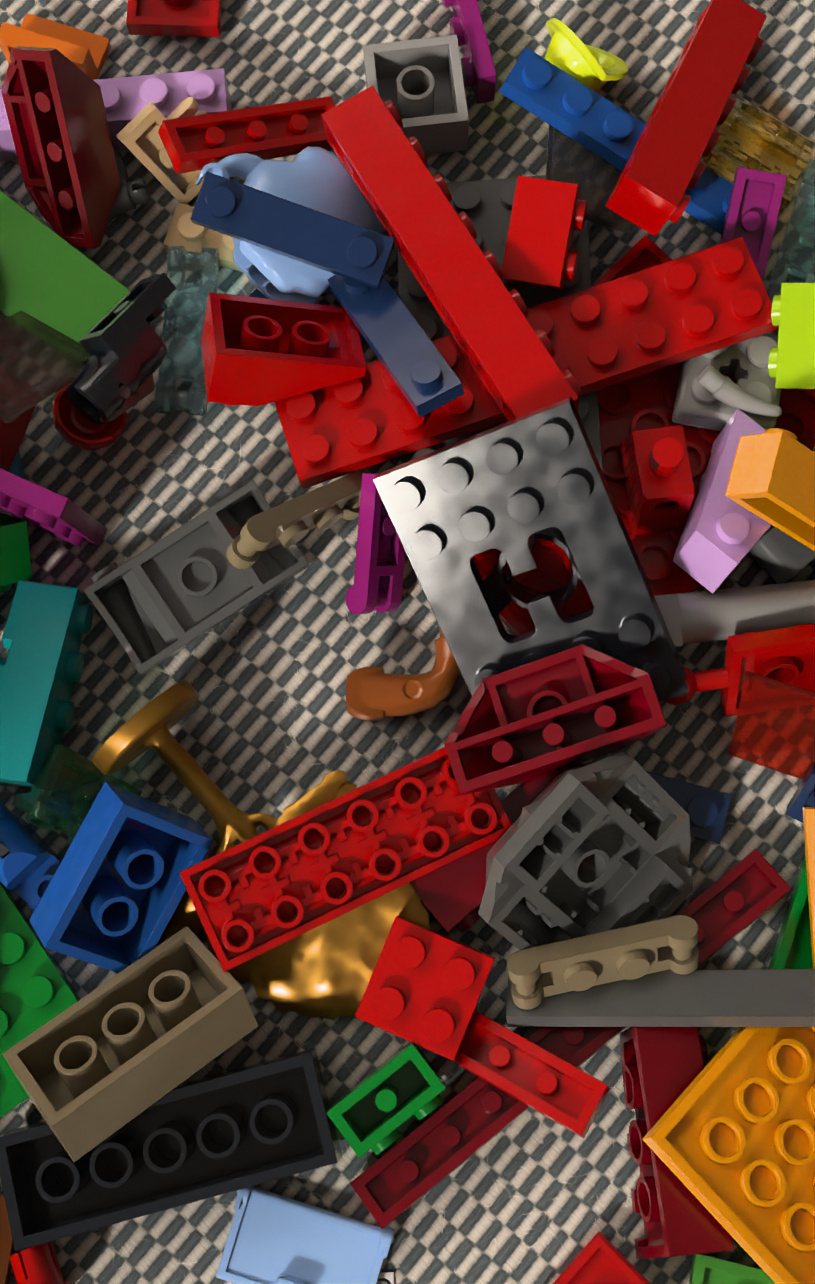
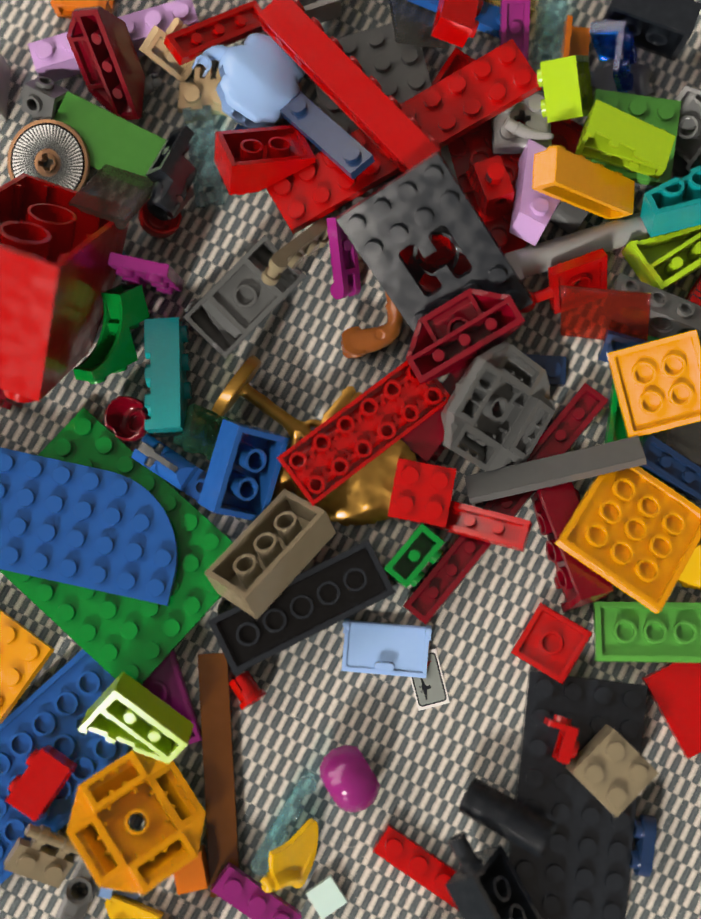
camera: 15 degrees left, 5 degrees up
(292, 230) = (255, 85): dark blue plate -> none
(543, 233) = (398, 59): red brick -> none
(603, 959) = (515, 456): dark tan plate -> none

